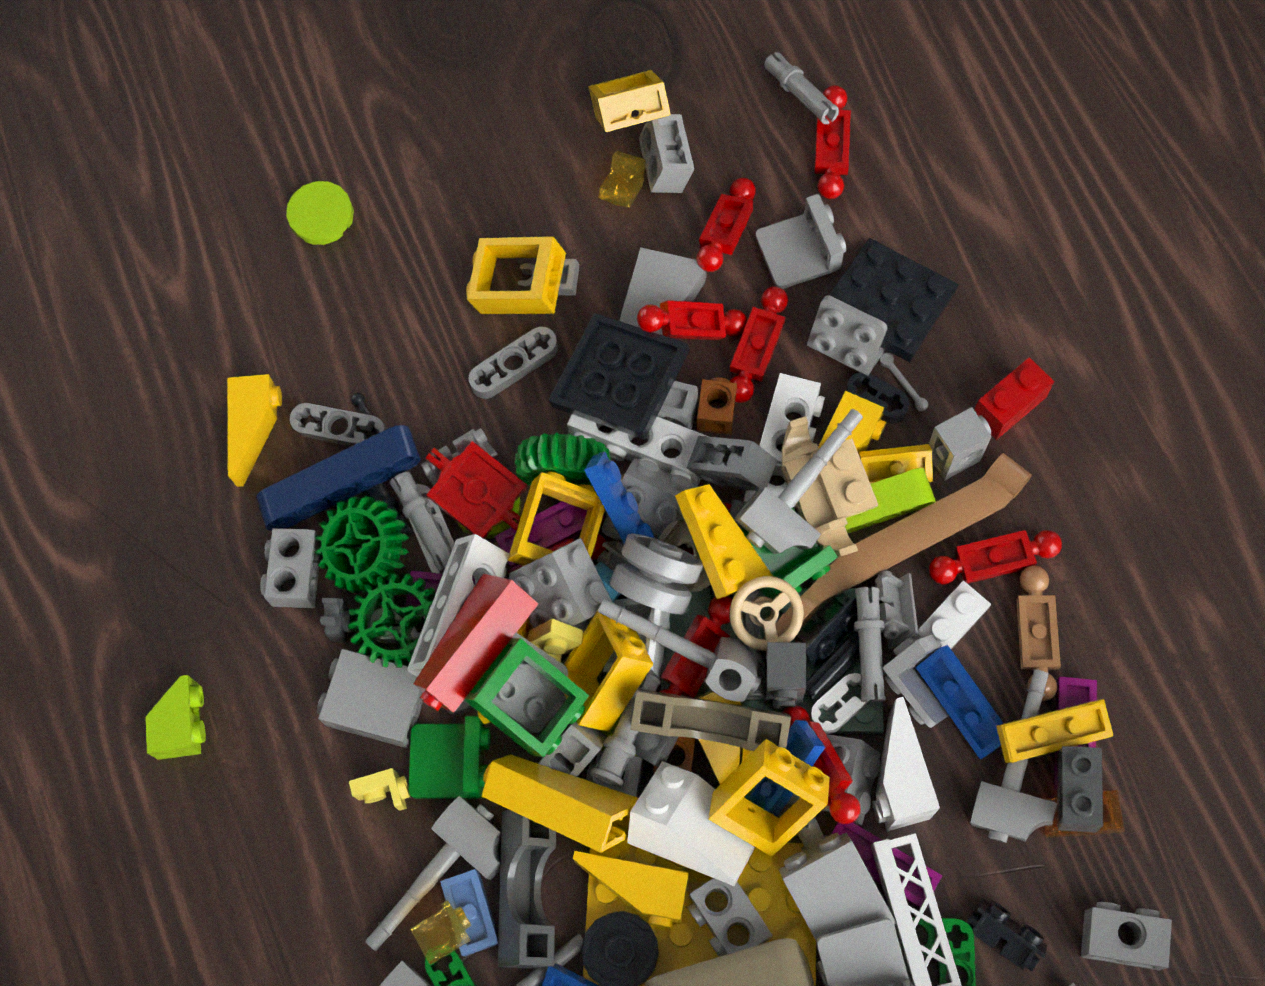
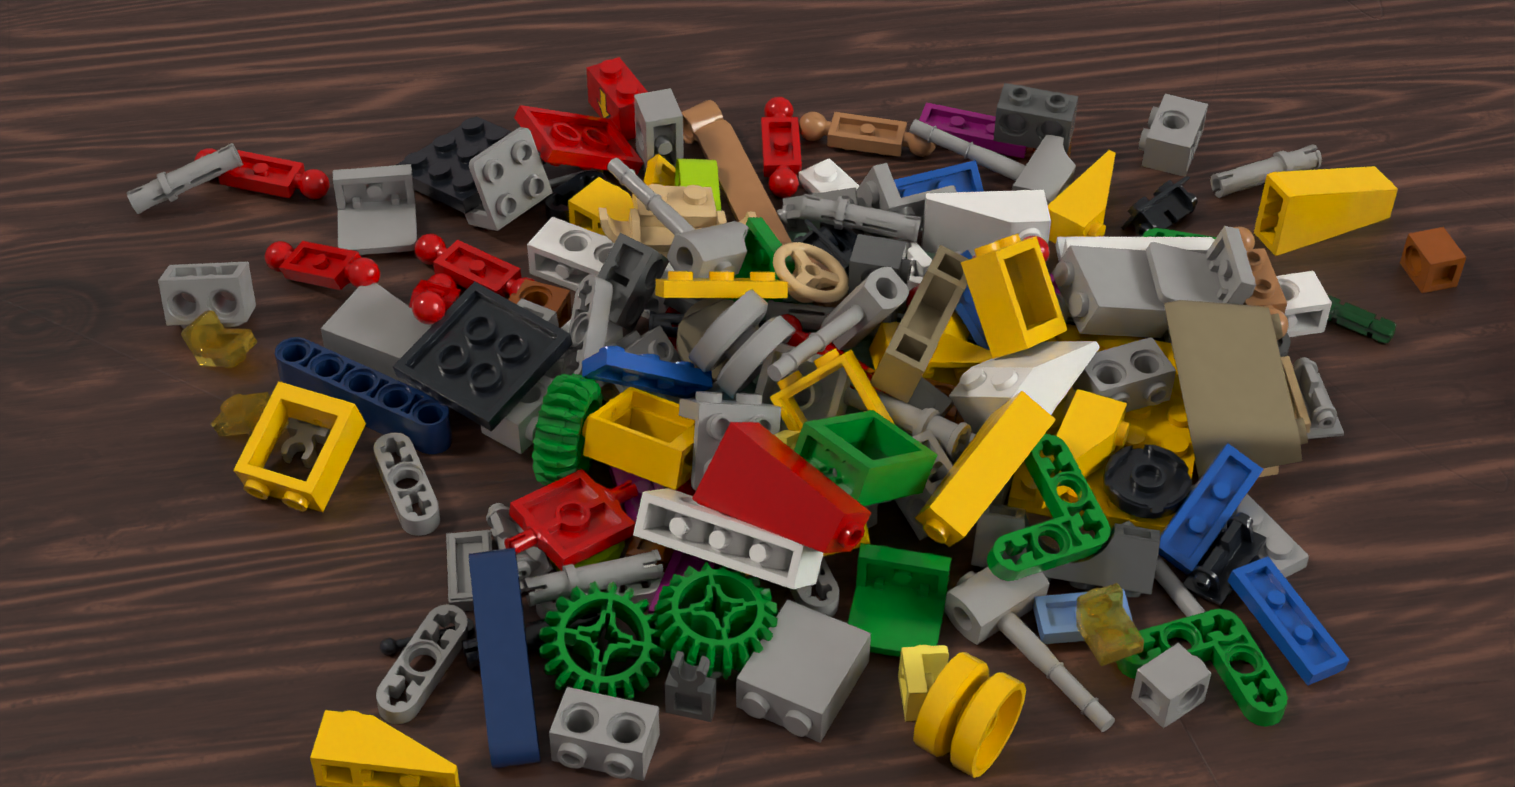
camera: 85 degrees left, 25 degrees down
(319, 212) = (97, 650): lime tile -> none
(332, 832) = (969, 714): none -> yellow wheel
(440, 430) = (458, 550): none -> light grey tile
(522, 880) = (1066, 516): none -> green beam
(553, 223) = (241, 414): none -> clear yellow bracket
(592, 287) = (381, 400): none -> dark blue beam
(619, 97) = (125, 302): yellow window -> none
(660, 447) = (588, 322): none -> light grey beam
(929, 374) = (577, 139): none -> red plate
(978, 856) = (1083, 204): none -> yellow slope
(1053, 730) = (974, 126): yellow tile -> none

